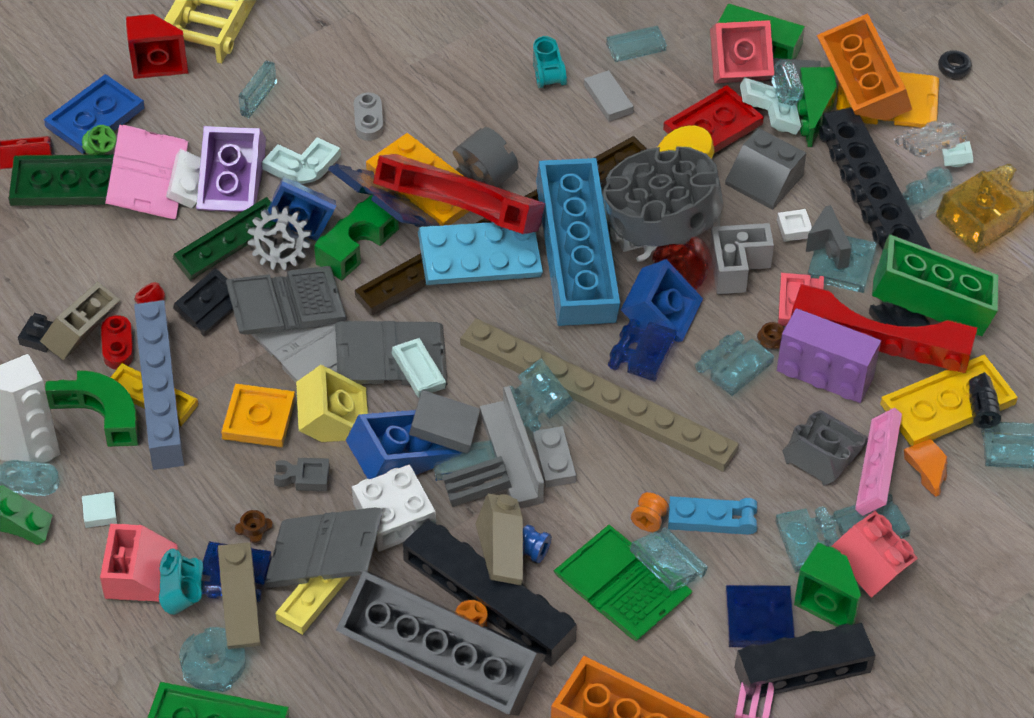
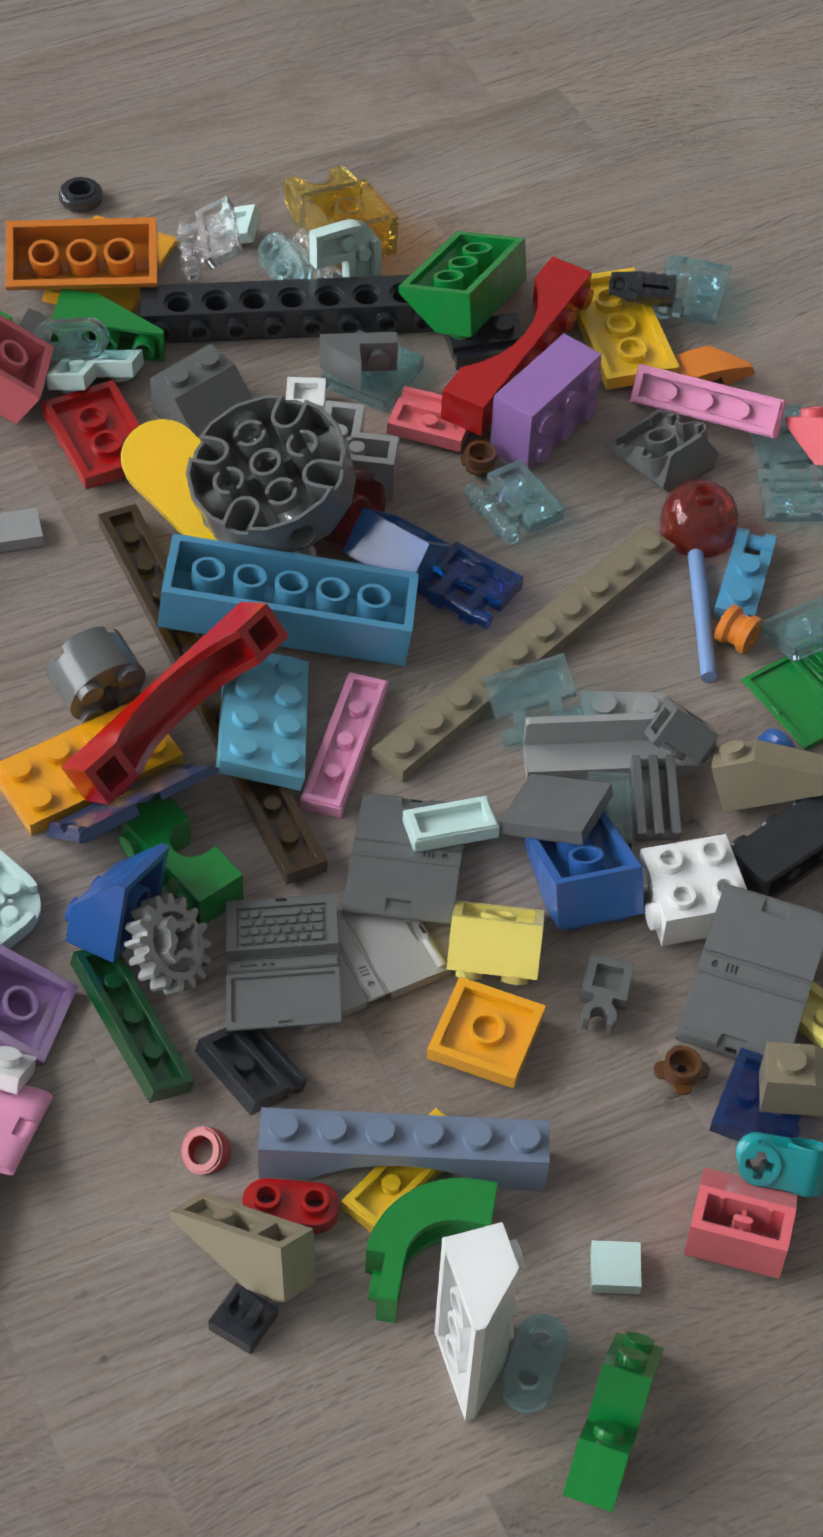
camera: 80 degrees left, 0 degrees up
(480, 305) = (344, 745): none -> bright pink tile
(518, 474) = (682, 732): none -> dark grey brick
(665, 492) = (702, 616): none -> medium blue bar
(758, 475) = (700, 517): none -> clear red cylinder
(943, 207) = (348, 243): none -> light aqua plate

